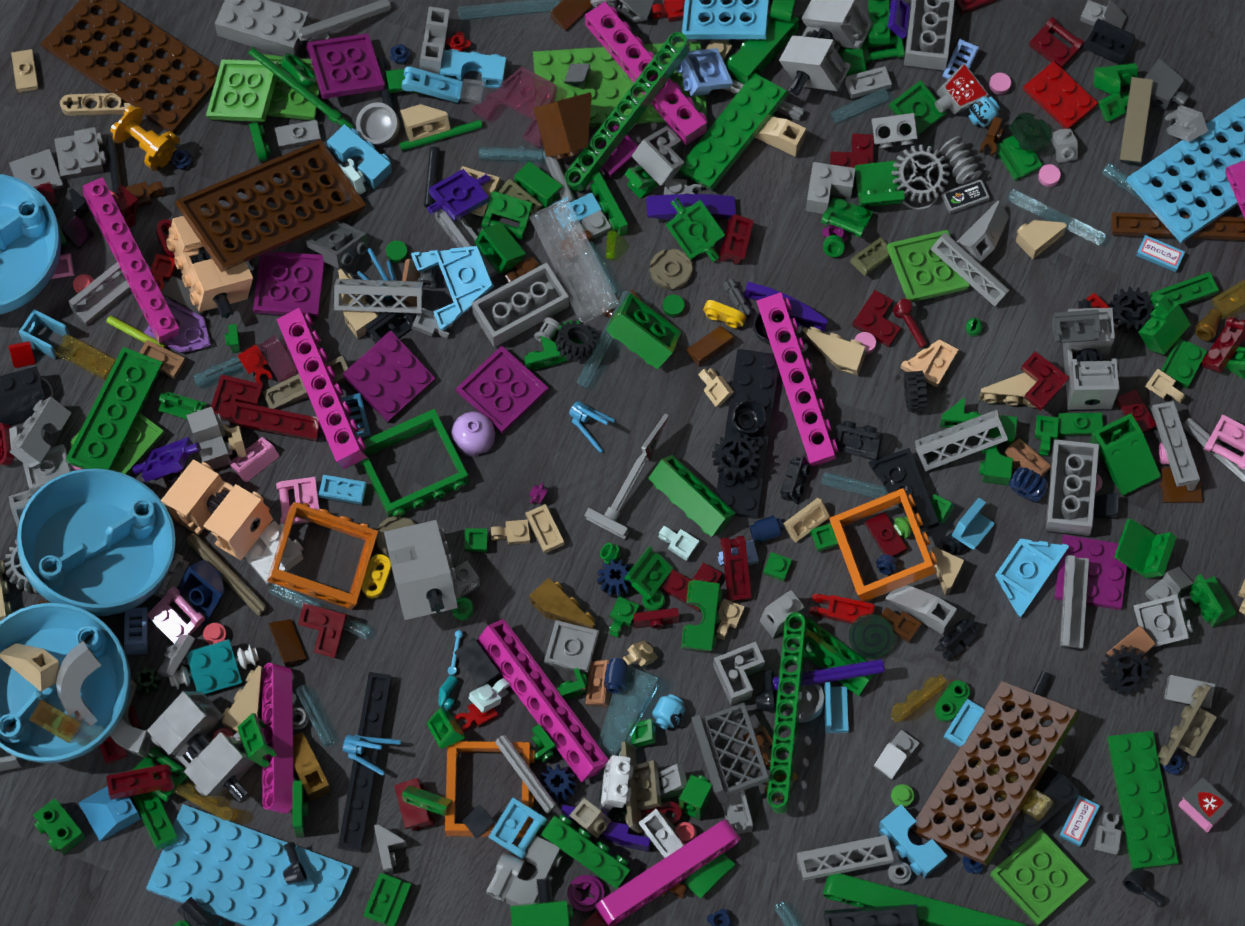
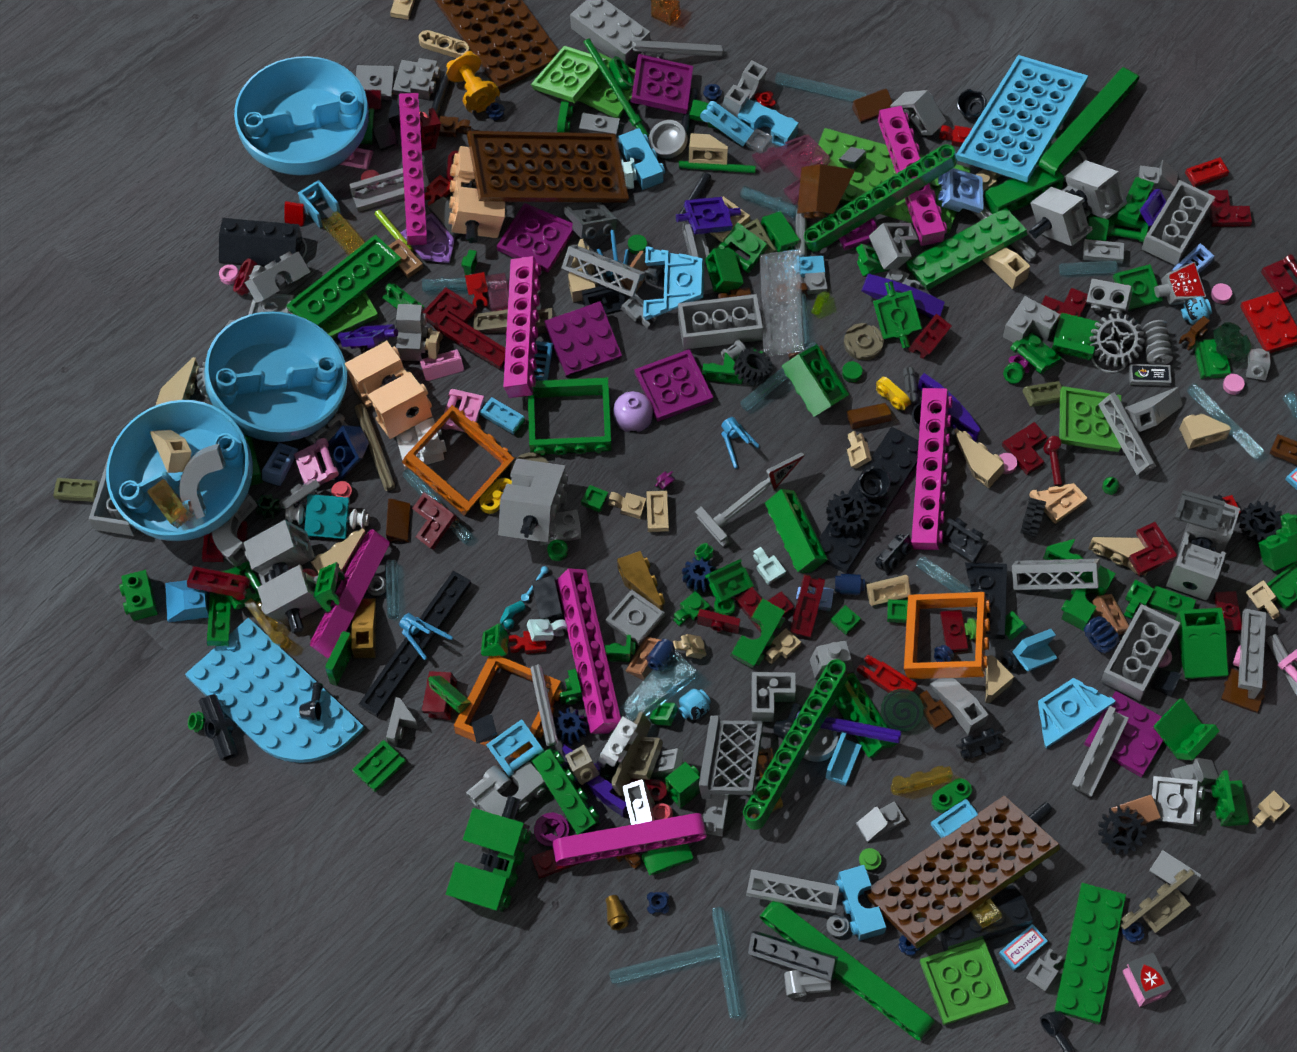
camera: 25 degrees right, 5 degrees down
(608, 204) = (832, 270): green plate -> none

